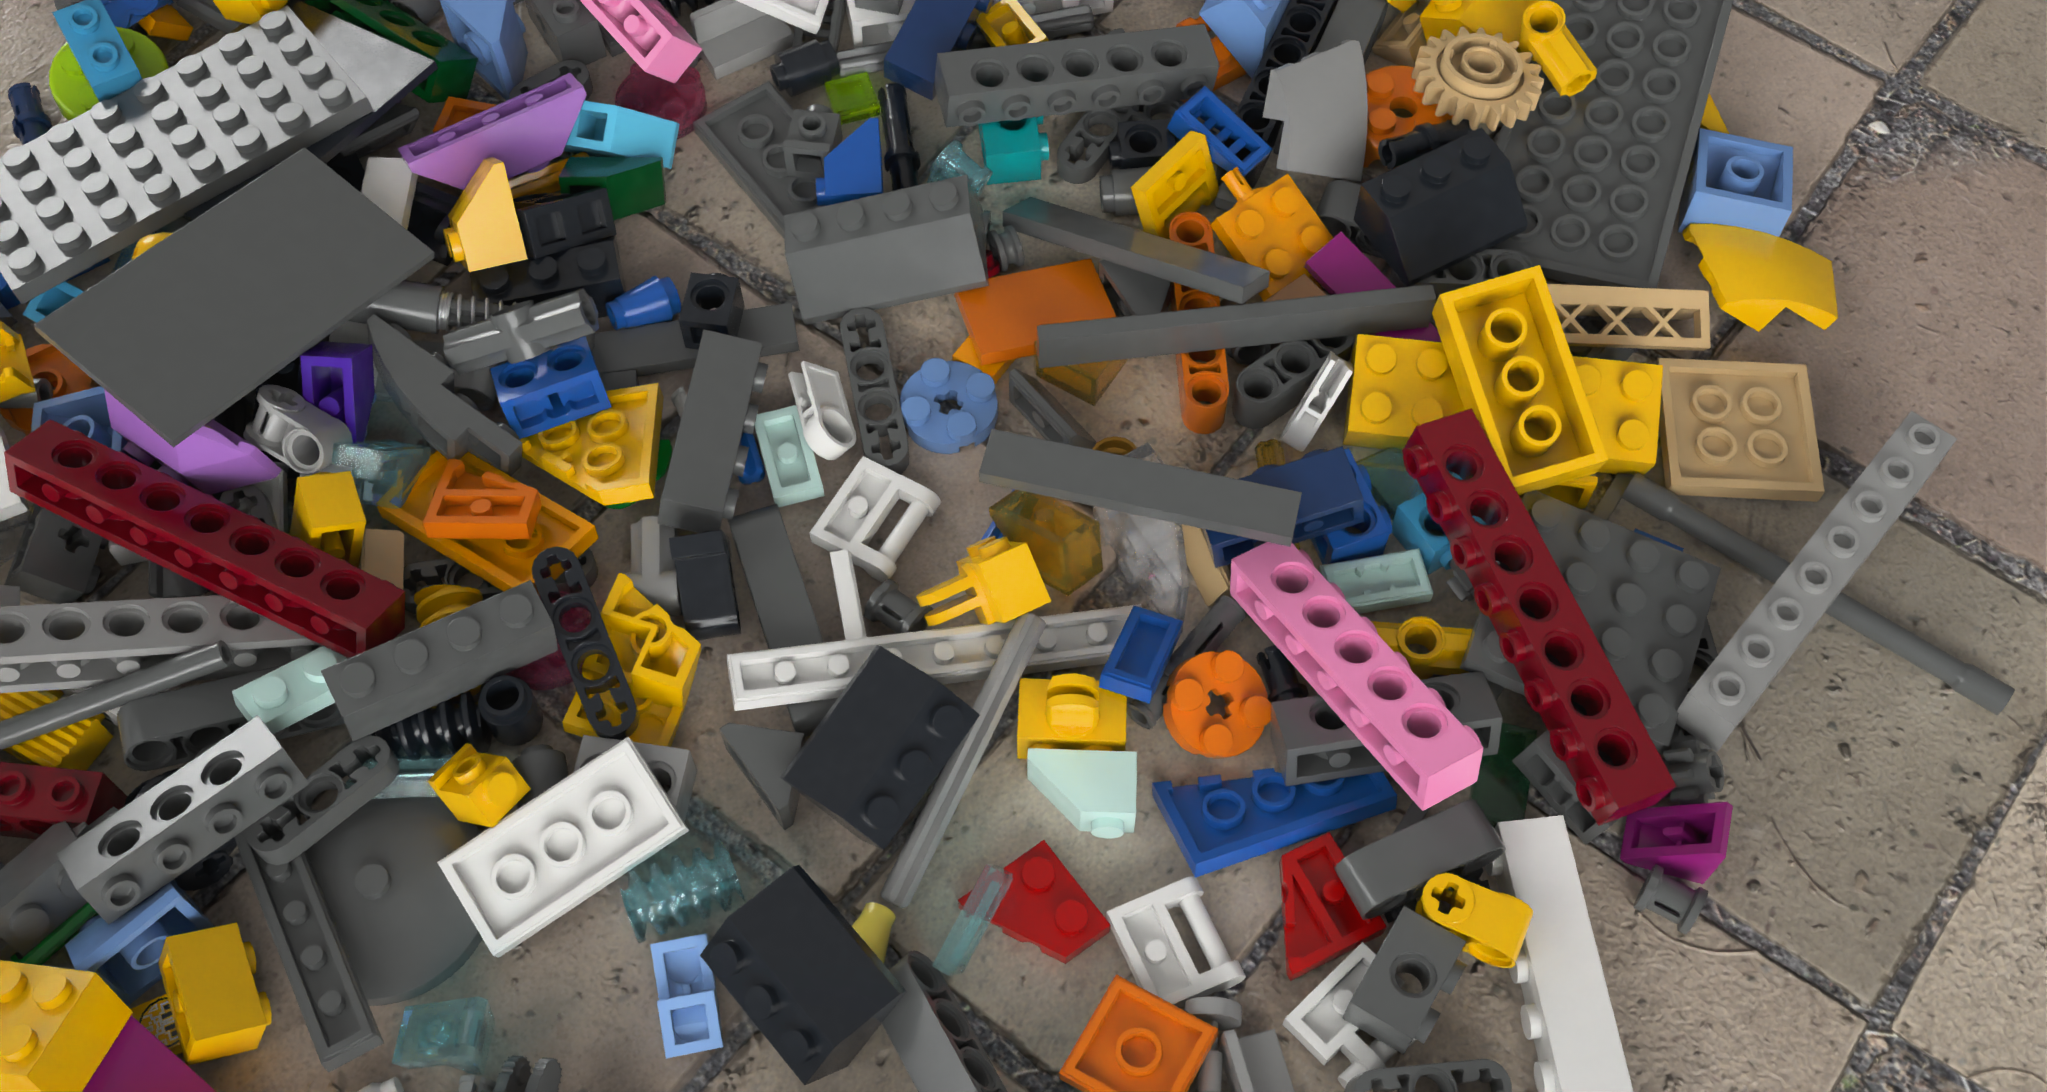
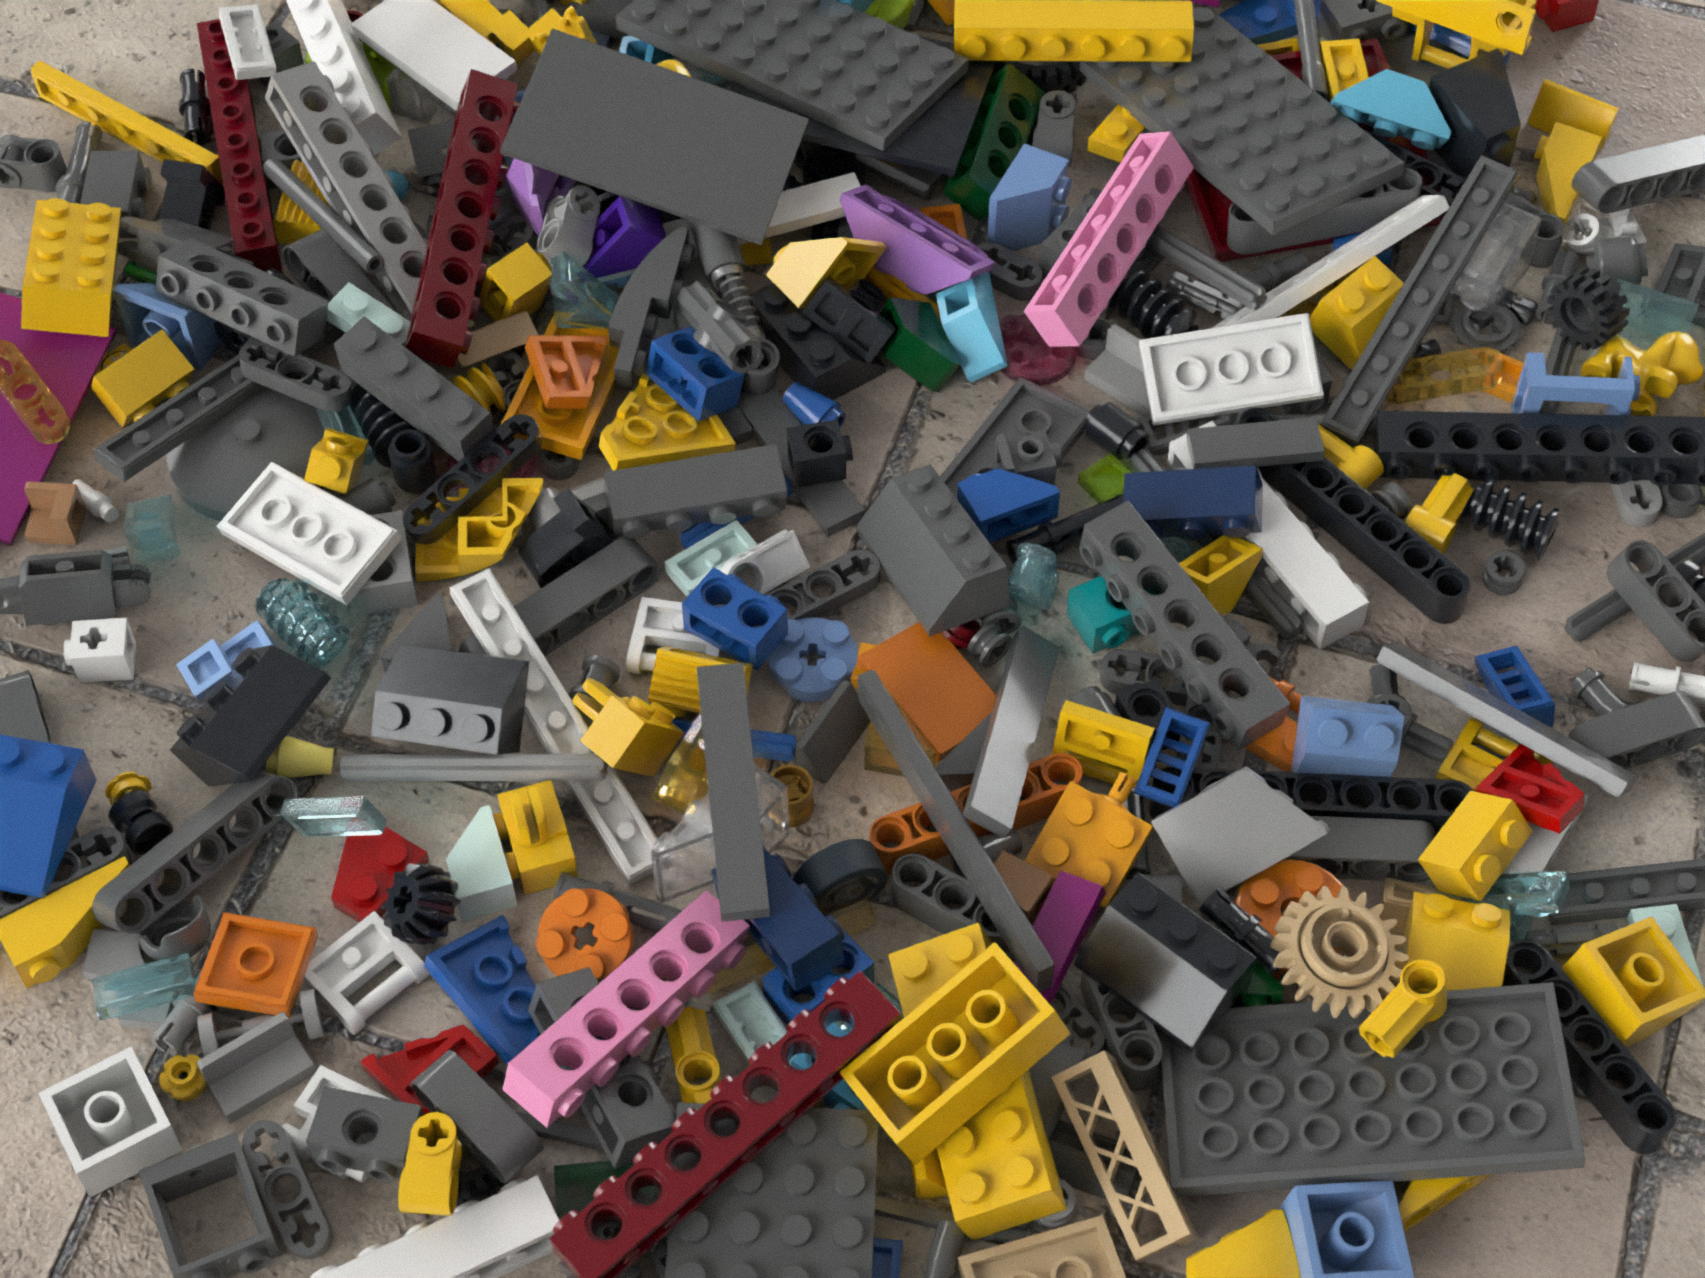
camera: 70 degrees right, 5 degrees down
(848, 594) = (601, 638): white tile -> none
(900, 452) = (729, 625): none -> blue brick
(948, 508) = (676, 680): none -> yellow brick
(1125, 871) = (421, 904): none -> black gear
(1141, 654) = (605, 860): blue tile -> none
(1239, 439) = (843, 874): none -> black wheel
(1316, 402) = (915, 924): white piece -> none

